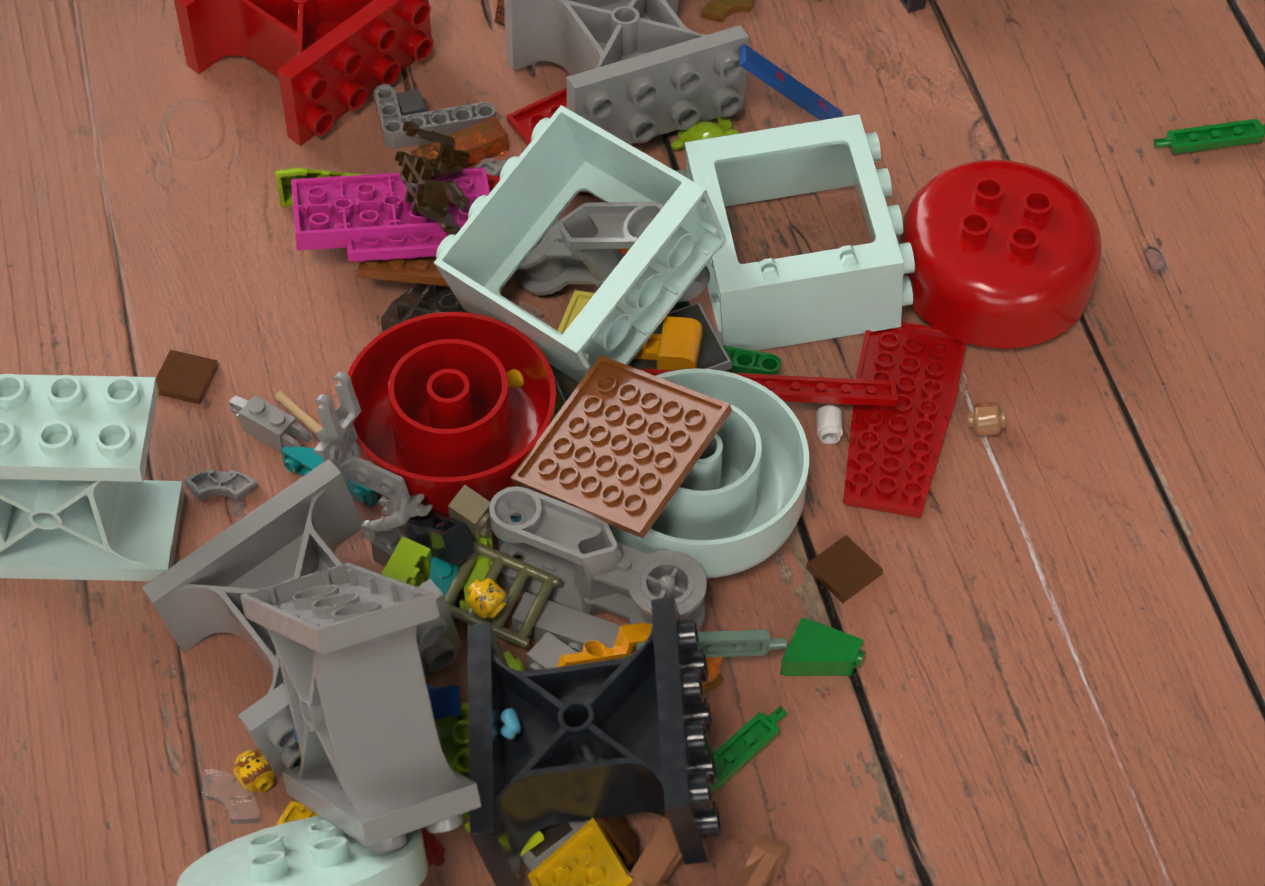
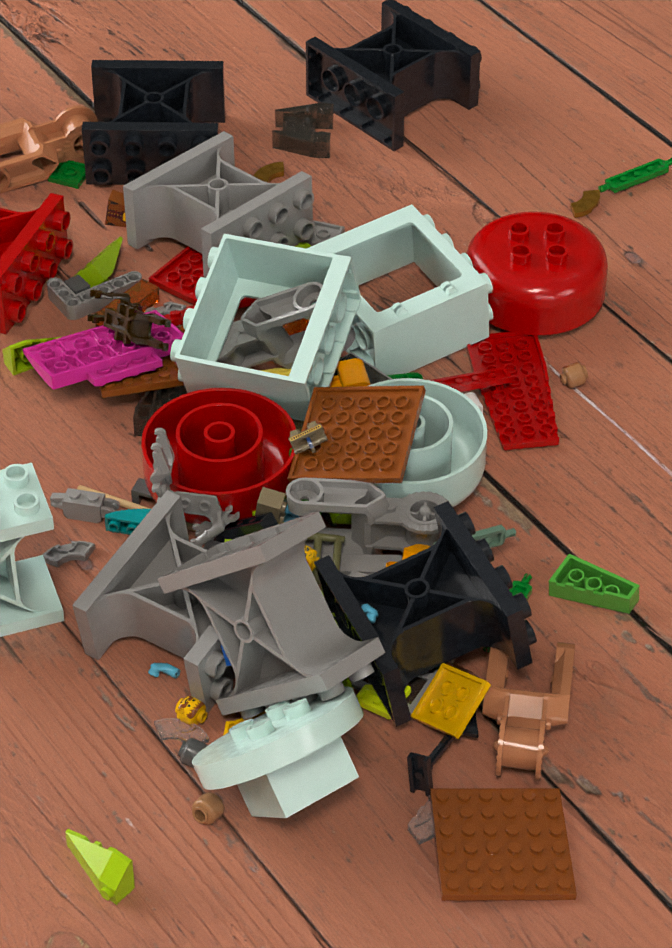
camera: 20 degrees left, 10 degrees down
(223, 830) = (189, 750): none -> dark grey head
(245, 692) = (165, 668): none -> medium azure arm
(455, 83) = (102, 265): none -> lime wedge
(554, 433) = (307, 439): none -> dark tan hips
(759, 112) = (324, 231): none -> light grey tile
(787, 85) = (340, 204): blue tile -> none
(821, 651) = (536, 536): green slope -> none
(844, 569) = (524, 486): reddish brown tile -> none
(860, 756) = (592, 585): none -> bright green wedge
(1129, 159) = (586, 204): none -> pearl gold tile

